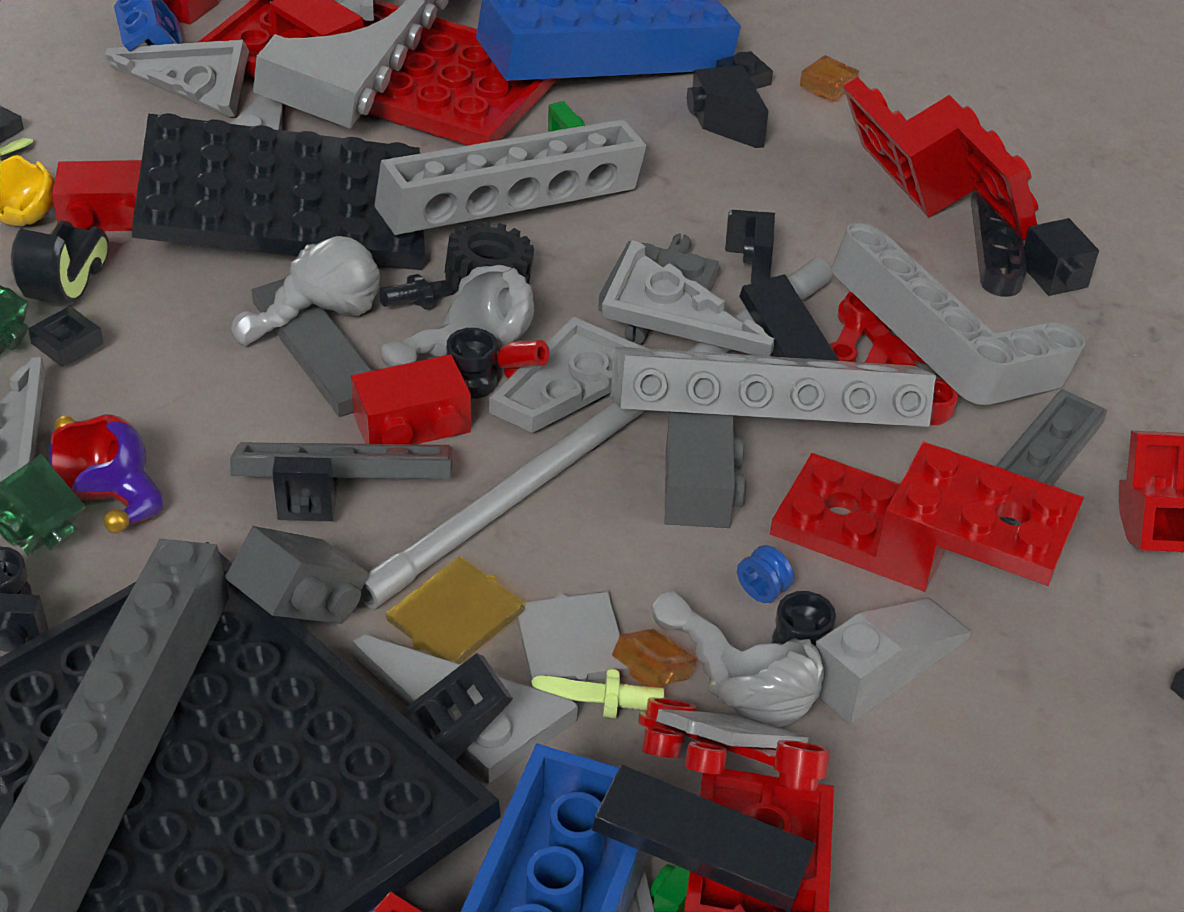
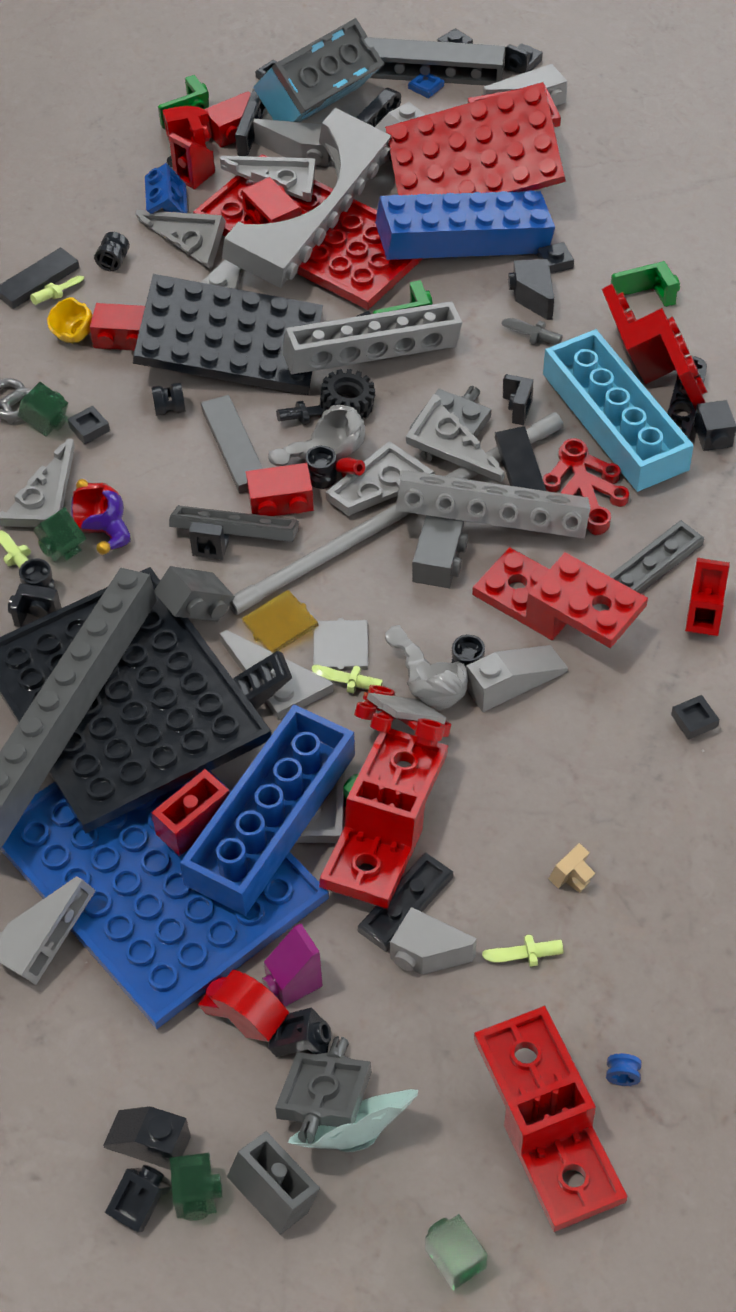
camera: 15 degrees right, 10 degrees up
(59, 263) = (90, 377): black animal -> none
(74, 100) = (111, 252): none -> black wheel
(197, 287) = (161, 399): none -> black wheel
(329, 274) = (245, 399): light grey hair -> none
(653, 658) = (380, 662): clear orange plate -> none
(704, 837) = (364, 763): black tile -> none
(750, 161) = (537, 332): none -> dark grey piece
(765, 574) = (457, 620): blue bush -> none
(827, 77) = (607, 265): clear orange plate -> none
(898, 82) = (648, 277): none -> green bracket
(944, 332) = (612, 478): light grey beam -> none
(971, 263) = (617, 410): none -> medium azure brick

